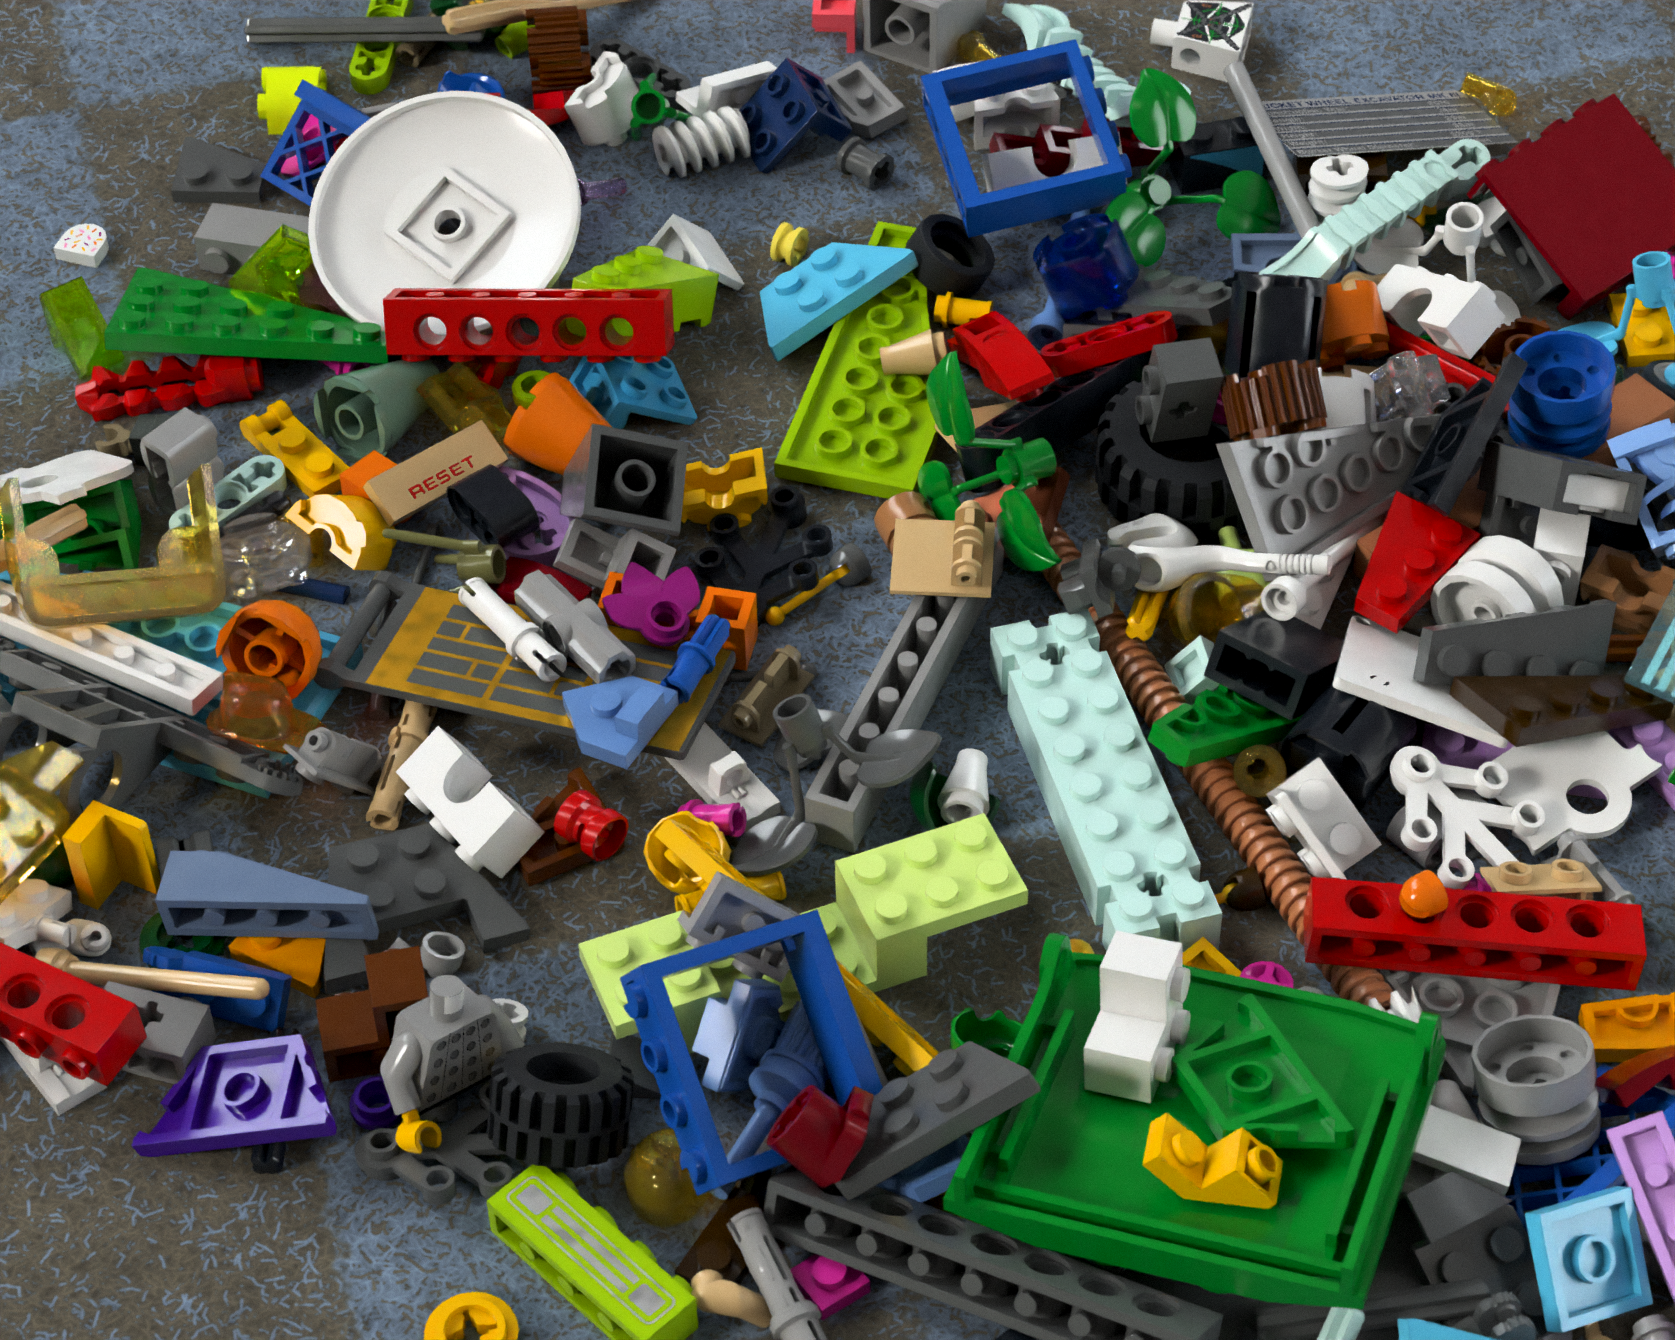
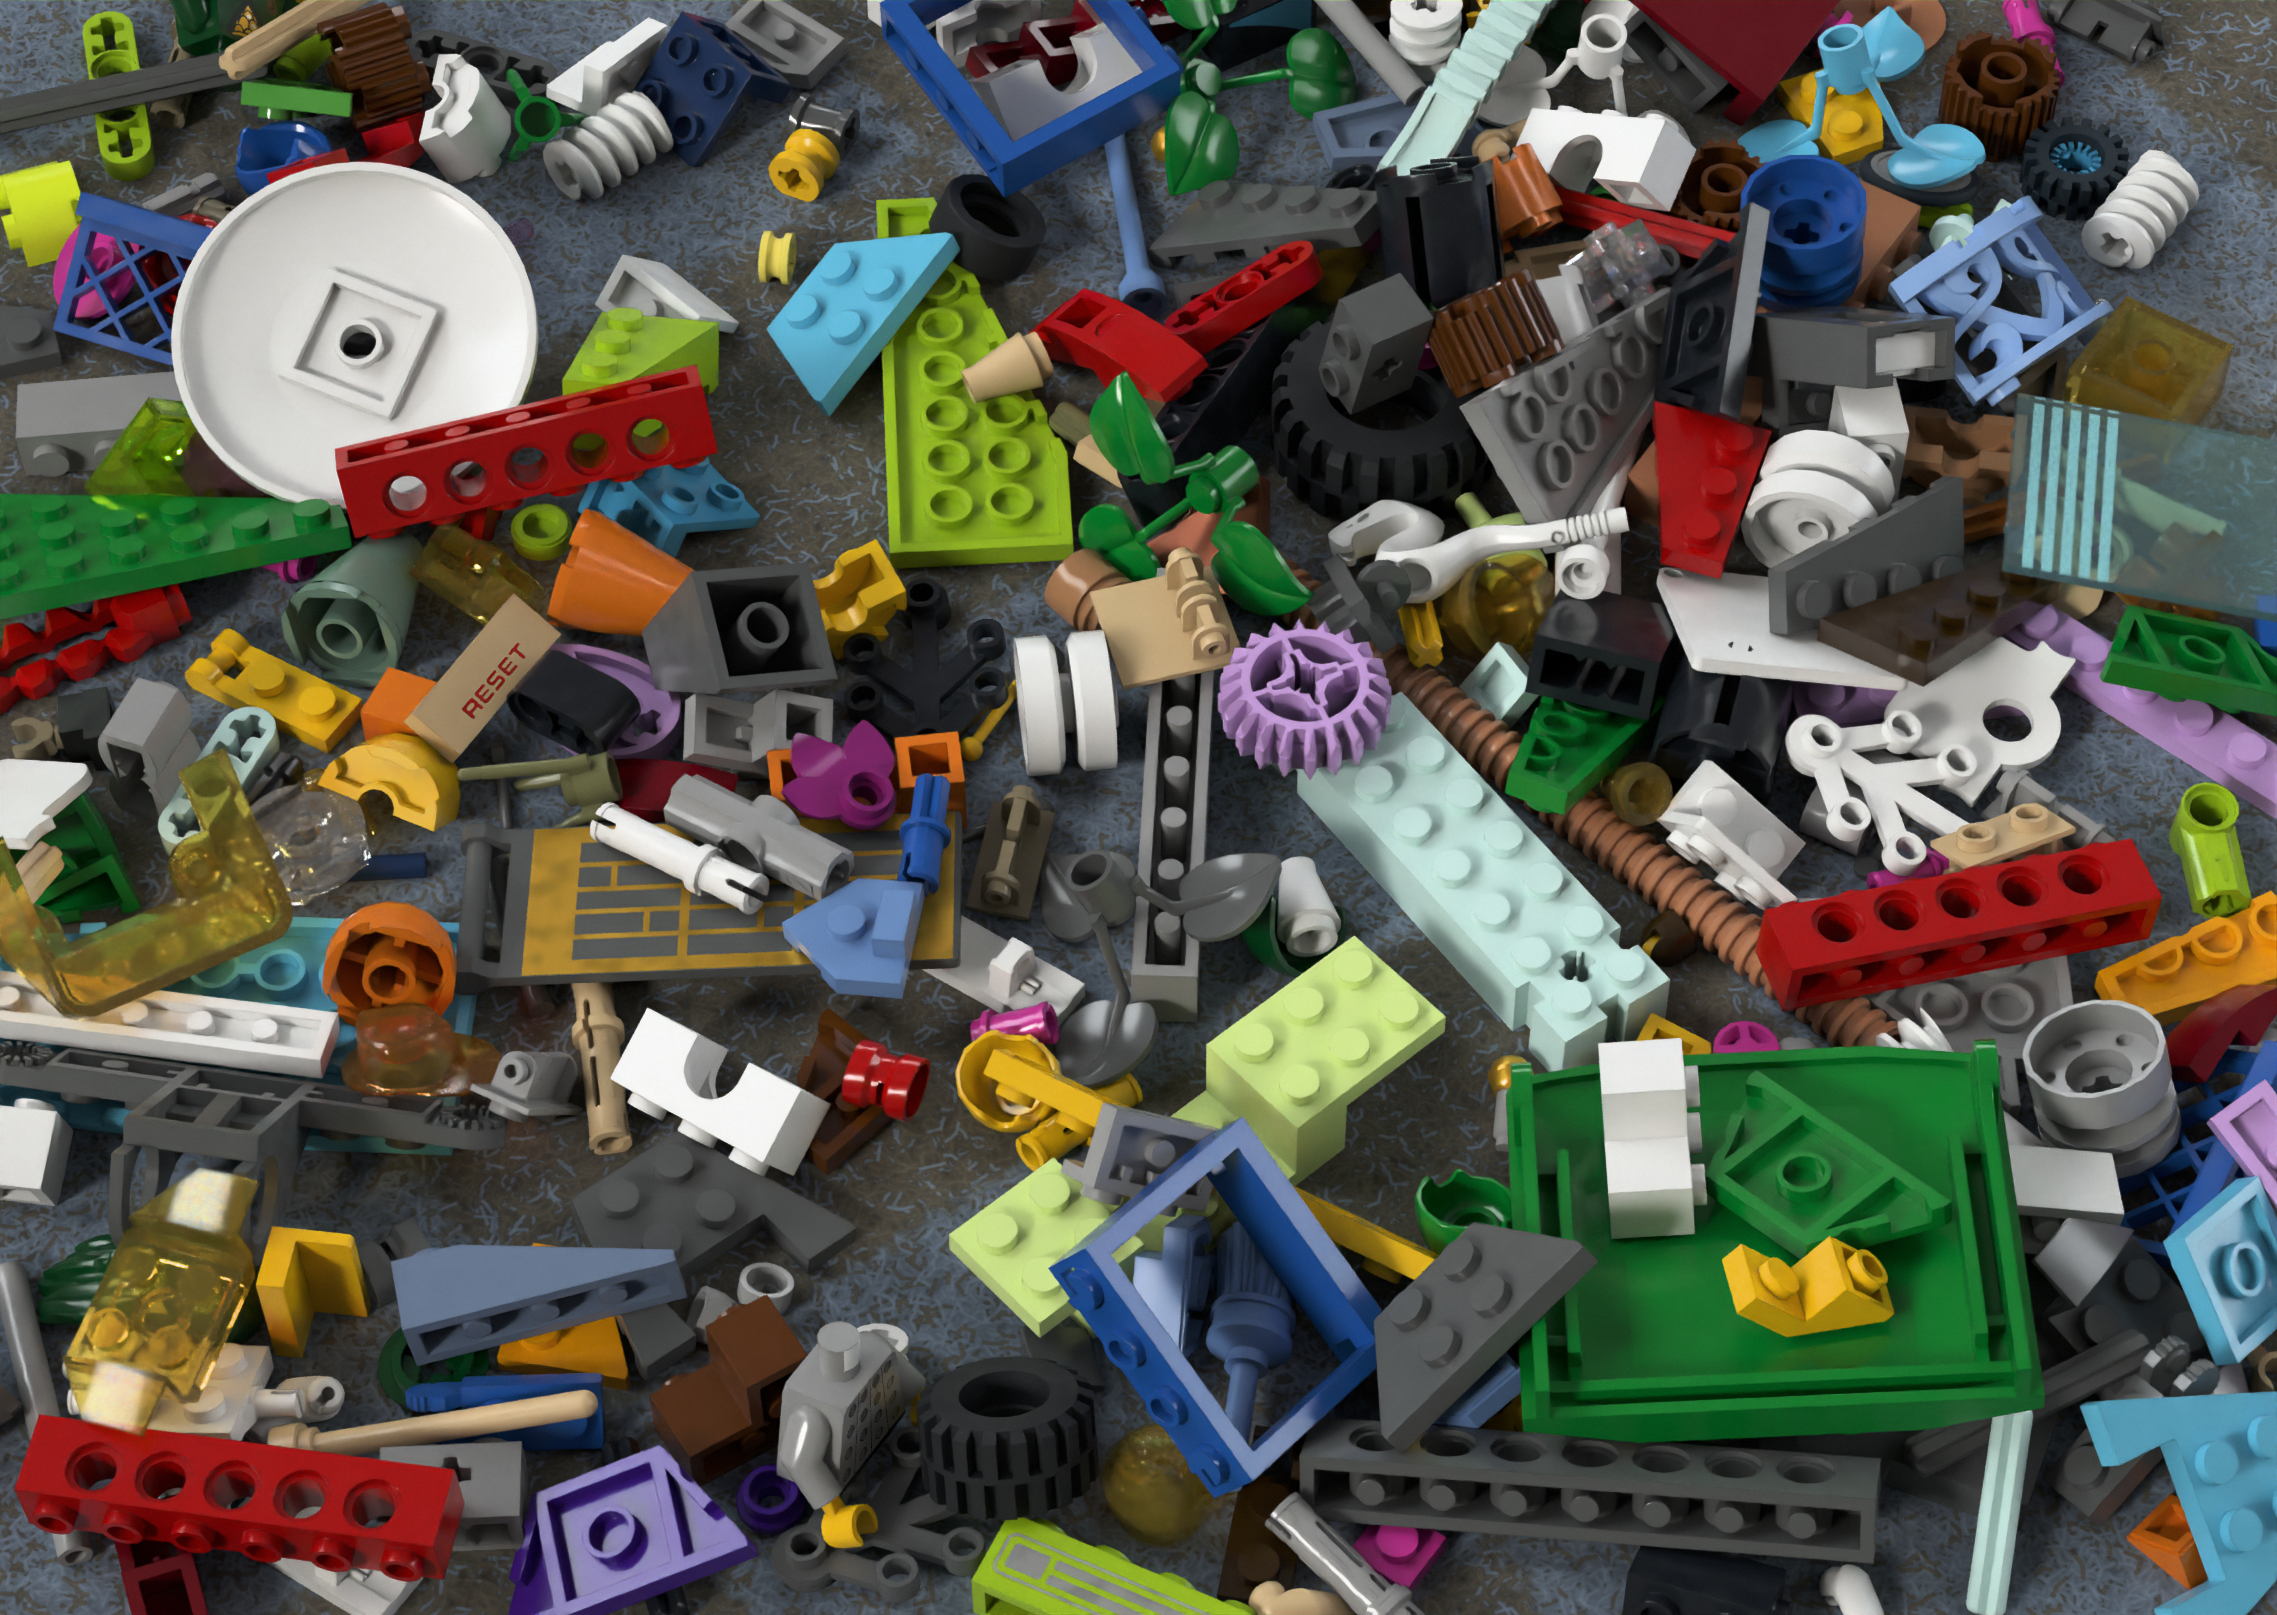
camera: 20 degrees left, 5 degrees up
(488, 59) = (294, 99): none -> bright green wing
(821, 1134) = (1351, 1385): dark red piece -> none
(838, 186) = (804, 165): none -> yellow wheel
(847, 596) = (1068, 702): none -> white wheel
(959, 310) = (1028, 294): yellow pin -> none
(1051, 636) = (1289, 695): none -> lavender gear
(1087, 265) = (1170, 201): clear blue brick -> none
(1423, 895) = (1903, 897): orange hinge -> none

